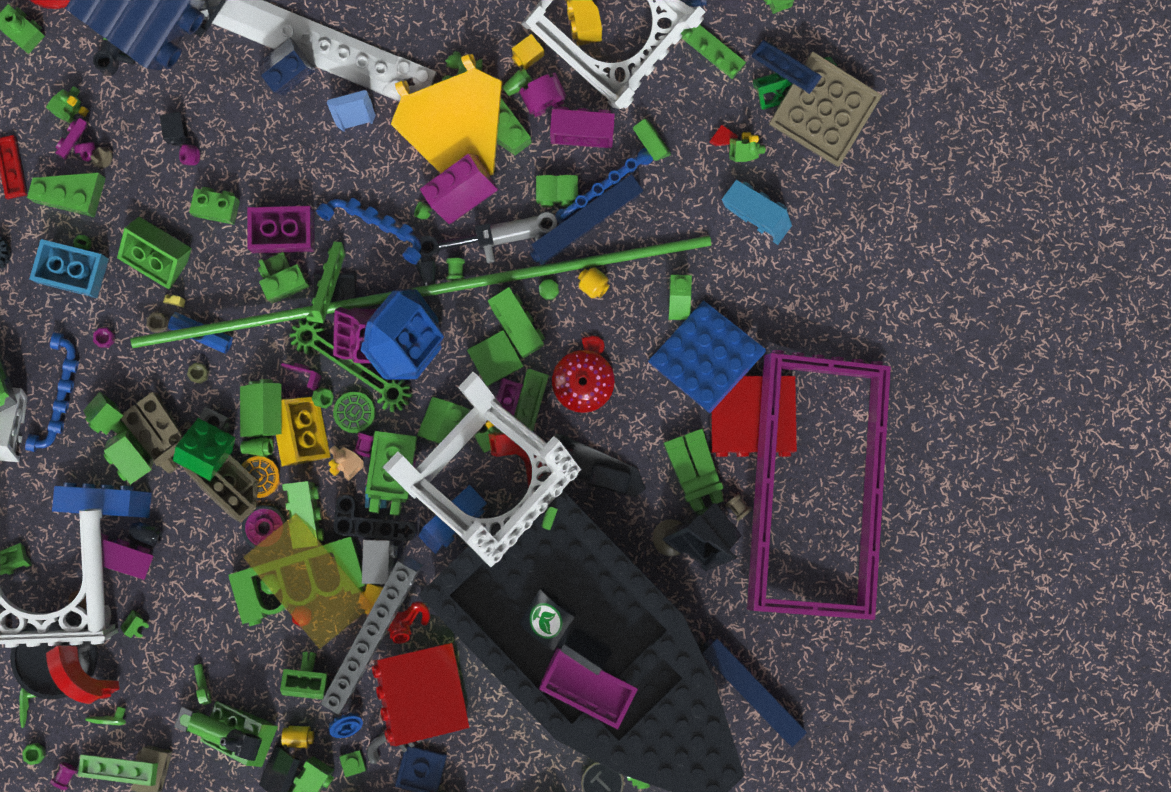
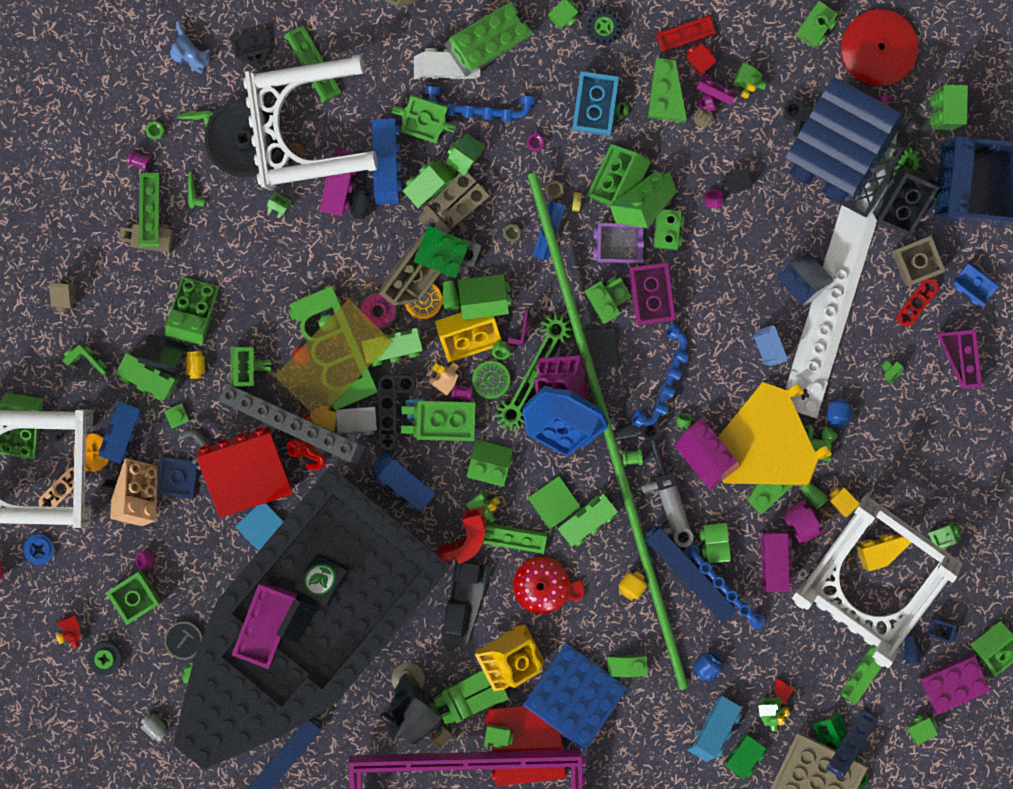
camera: 85 degrees right, 5 degrees up
(37, 153) = (700, 58): none -> red brick
(60, 454) = (424, 118): none -> bright green plate
(71, 678) = (224, 161): red arch -> none
(178, 226) = (644, 201): none -> bright green wedge
(197, 722) = (183, 322): piece -> none
(202, 692) = (222, 276): bright green bar -> none
(222, 259) = (618, 243): none -> window
(327, 283) = (605, 344): bright green hinge -> none
(345, 725) = (209, 406): blue gear -> none
(433, 46) = (839, 413): none -> blue head
(482, 685) = (259, 525): none -> dark azure tile
(487, 408) = (505, 503): white arch -> none
(509, 395) = (515, 517): magenta slope -> none
(548, 289) = (622, 544): bright green tile -> none
(549, 518) = (409, 576): bright green tile -> none
(651, 140) = (771, 625): bright green slope -> none
(659, 422) = (510, 659): none -> yellow slope
(689, 211) = (708, 666): none -> blue head
(741, 443) = (498, 736): none -> bright green brick
(789, 182) = (745, 756): none -> green brick

